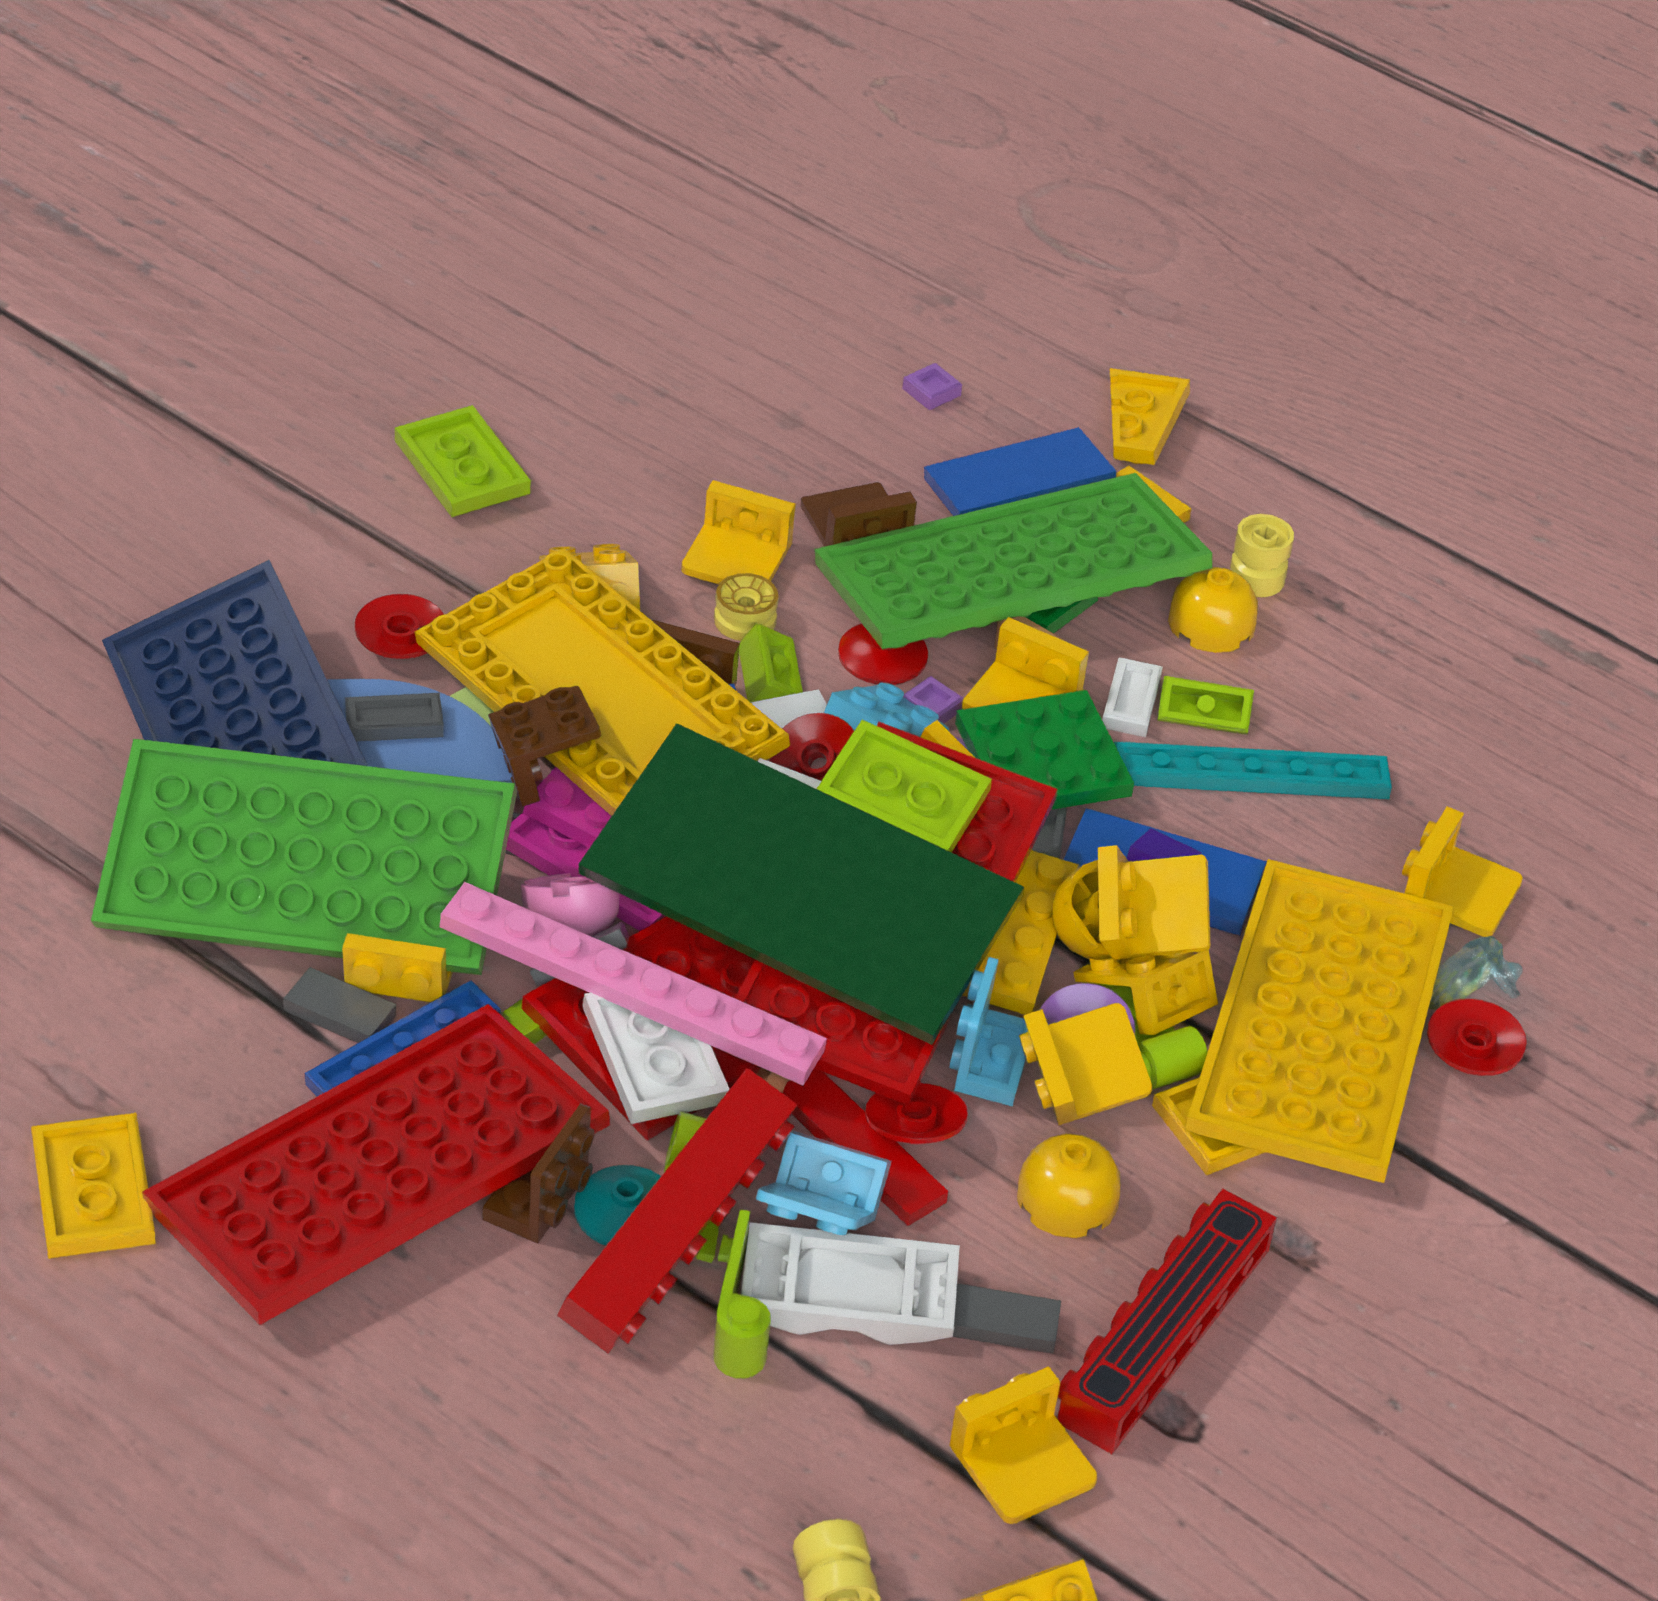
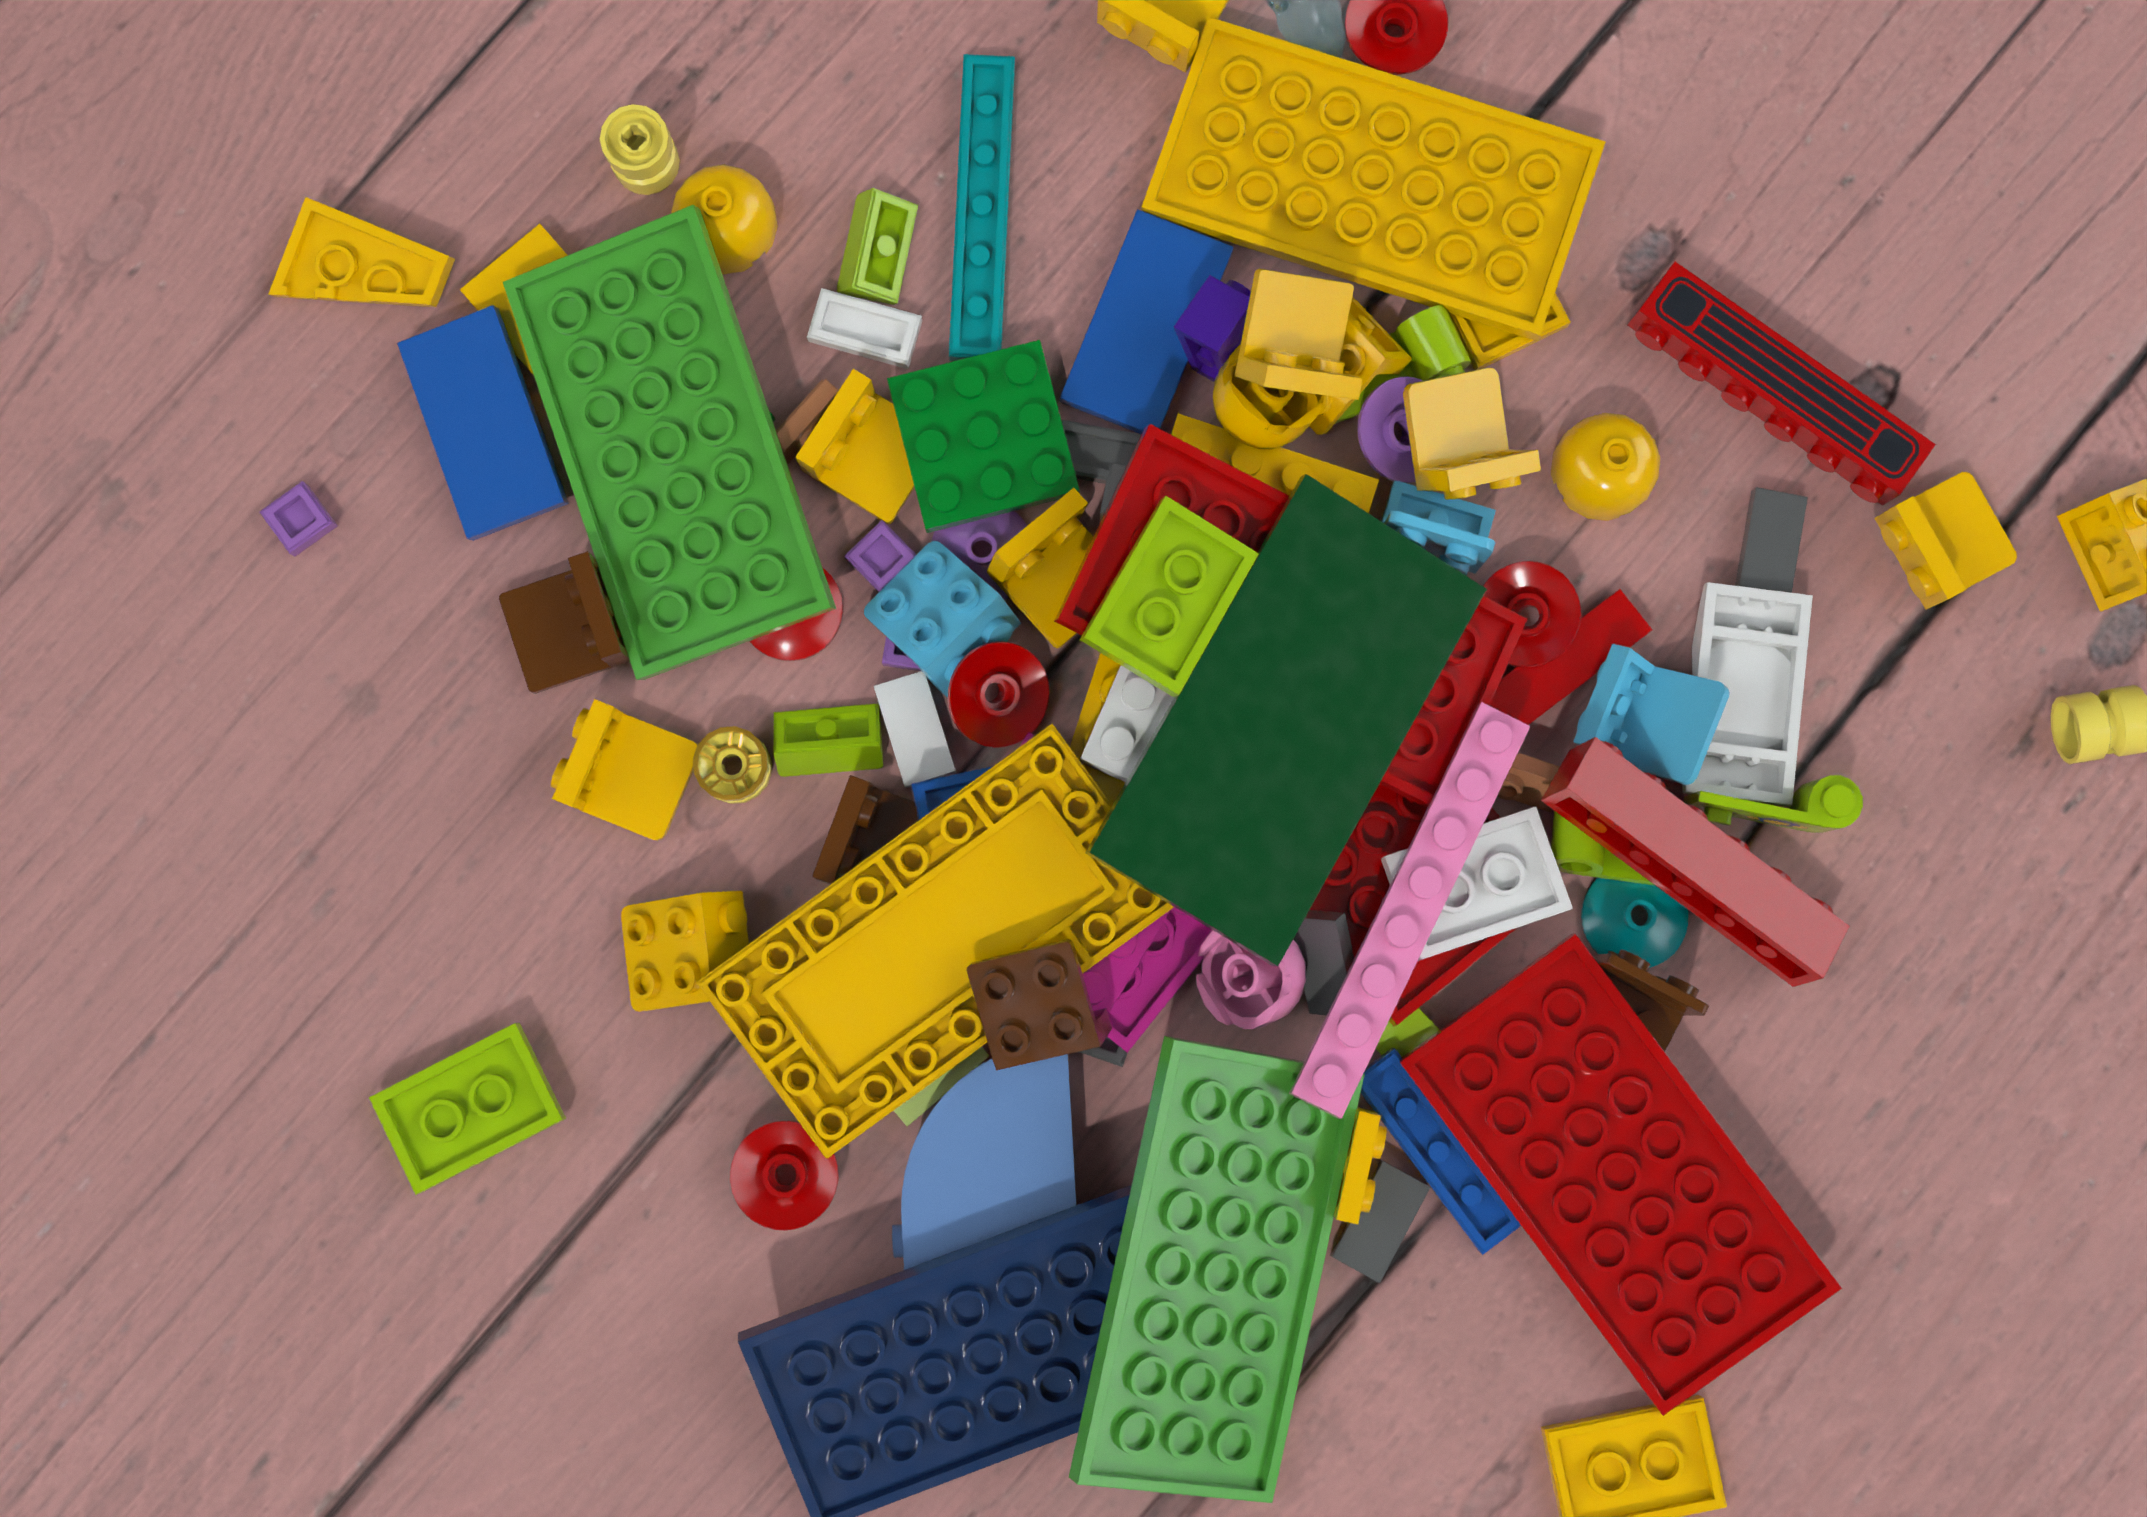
camera: 85 degrees left, 40 degrees up
(395, 716) = (976, 1179): dark grey tile -> none

